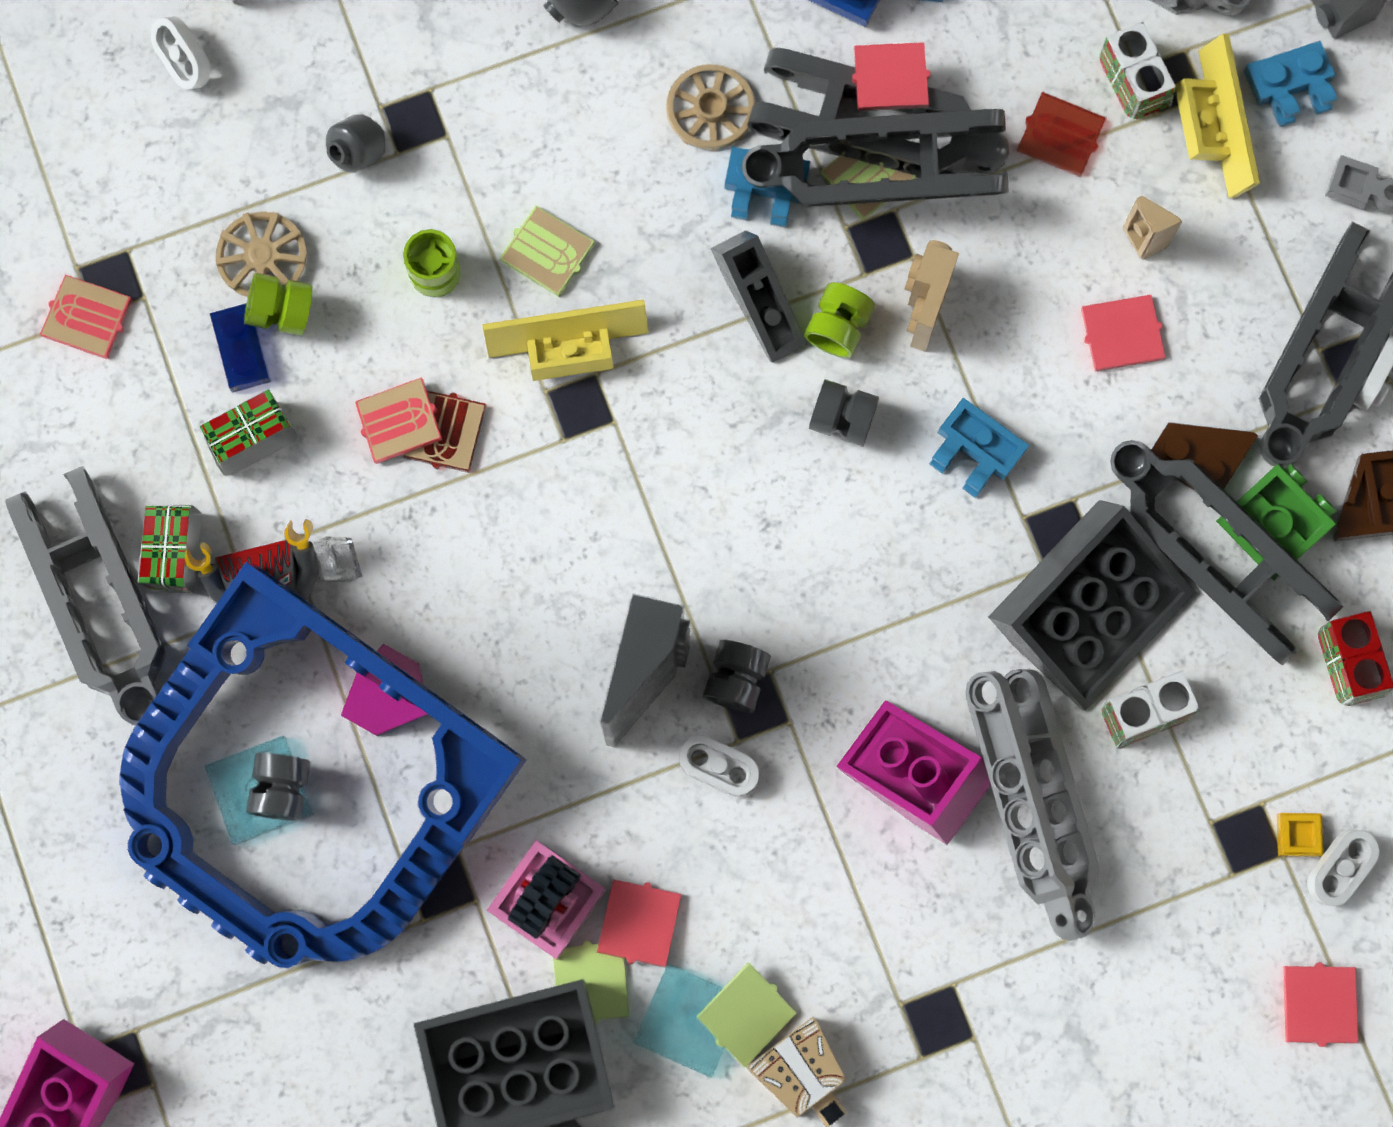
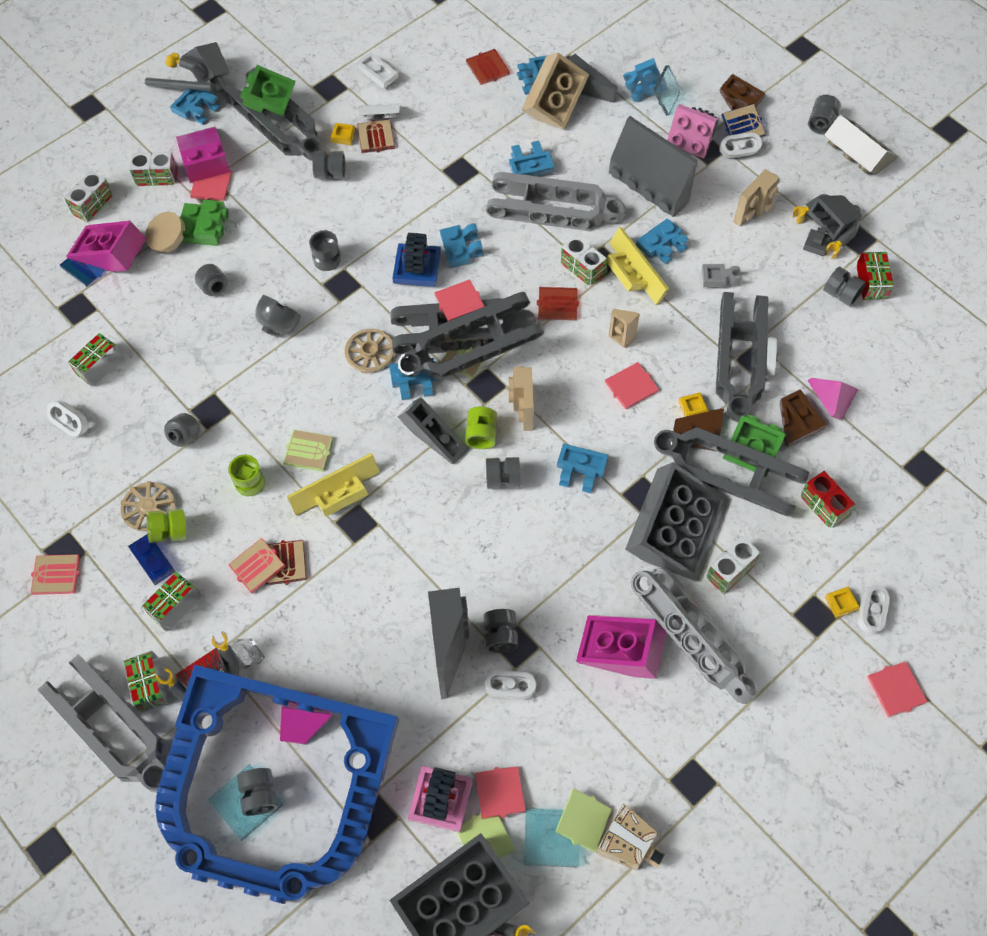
camera: 20 degrees left, 15 degrees down
(1210, 407) = (692, 404): none -> yellow tile

